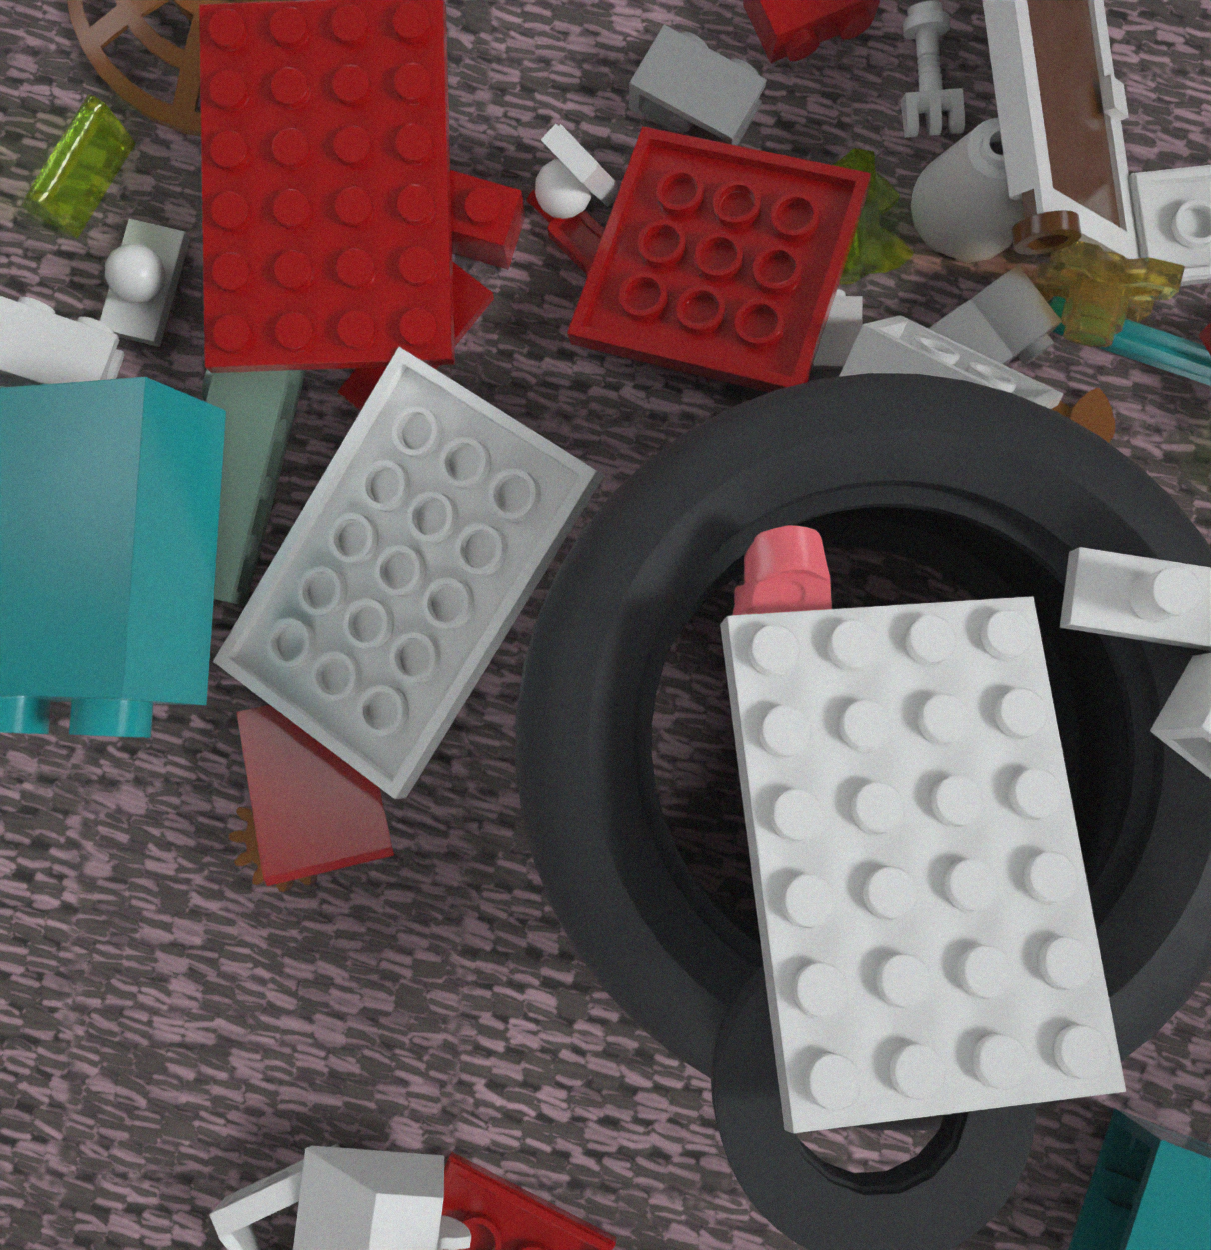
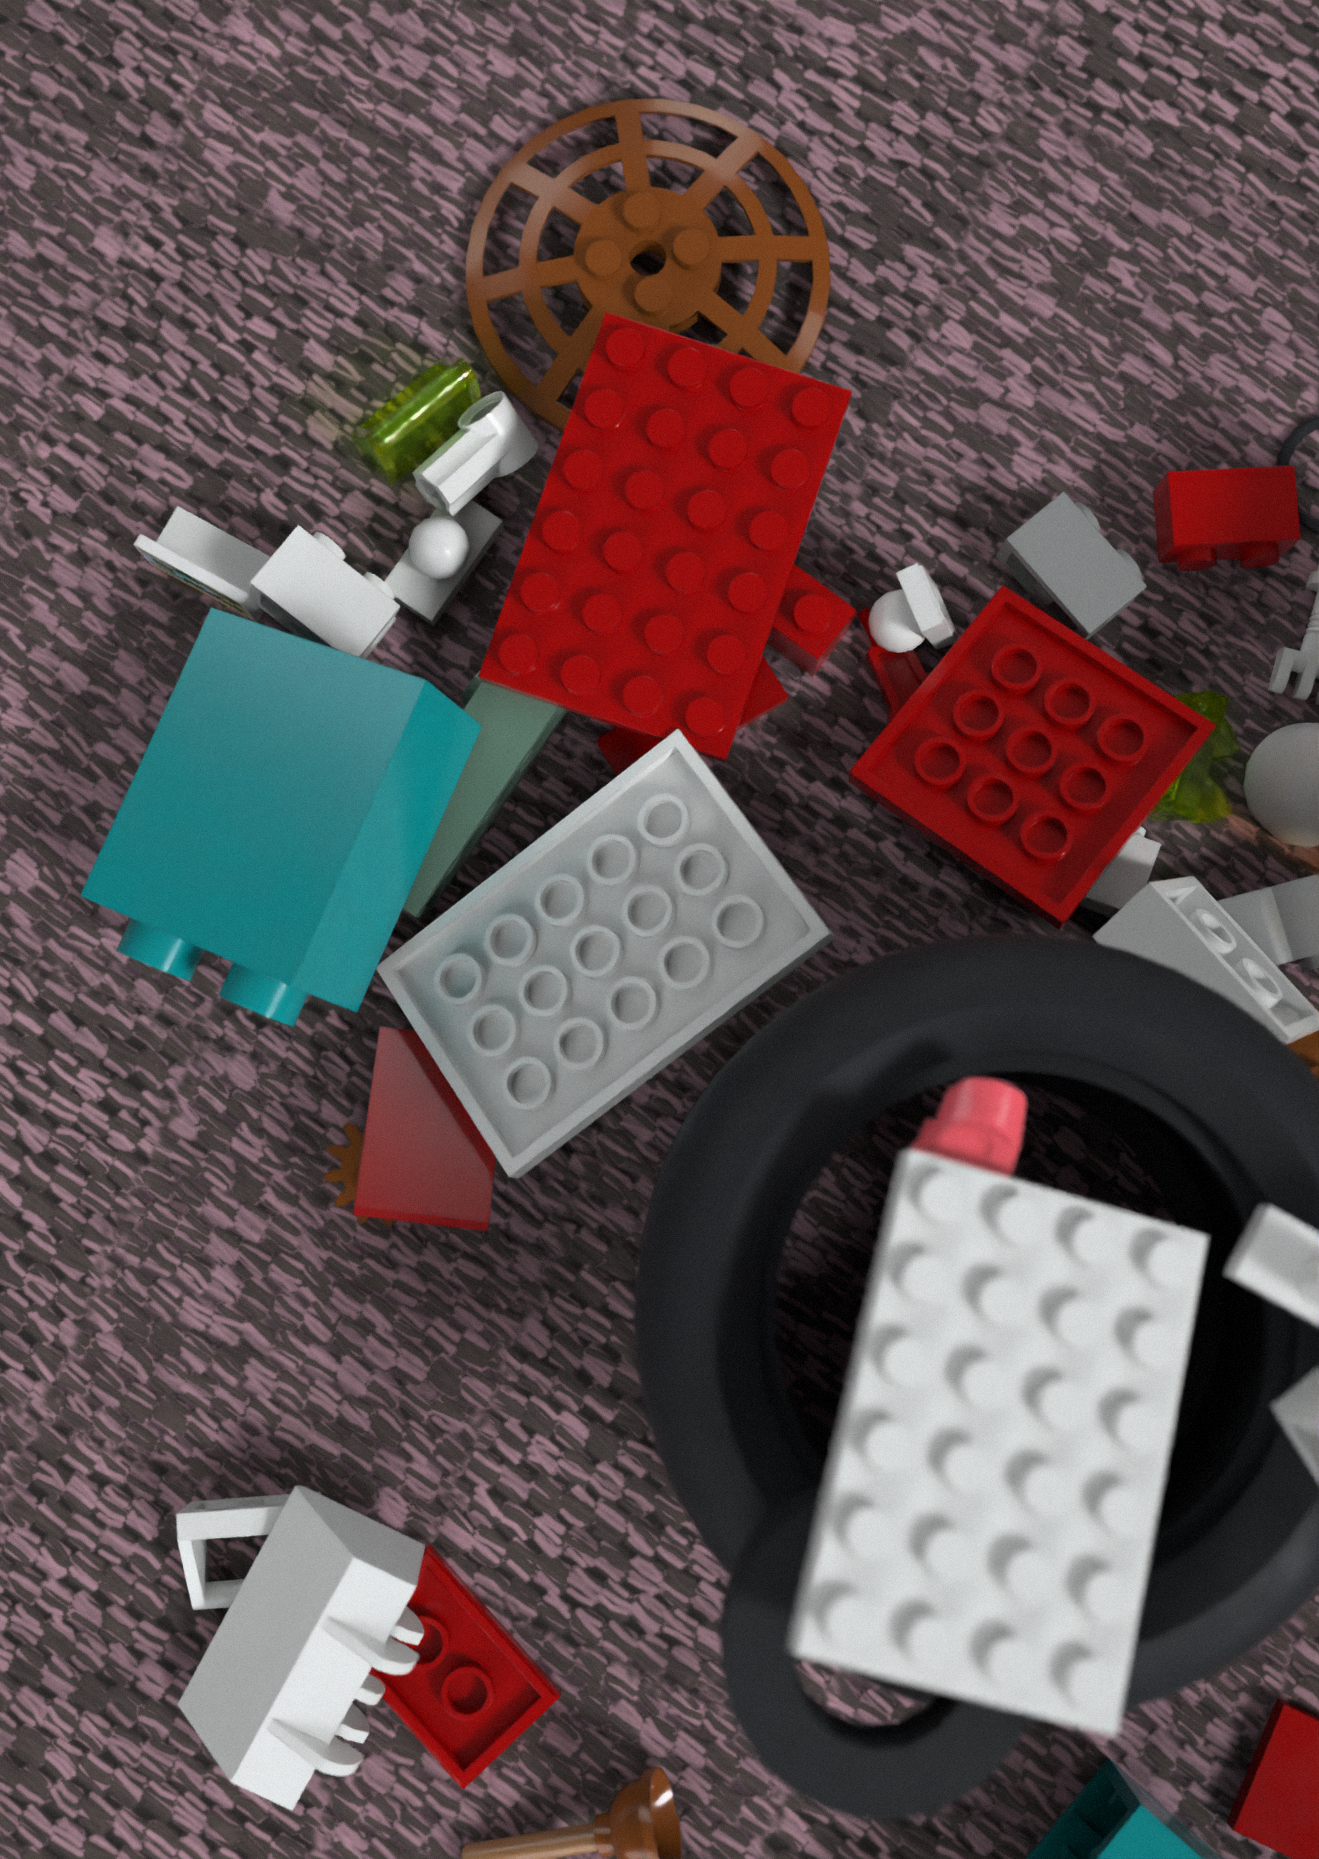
camera: 20 degrees right, 0 degrees up
(144, 170) = (487, 446): none -> white piece

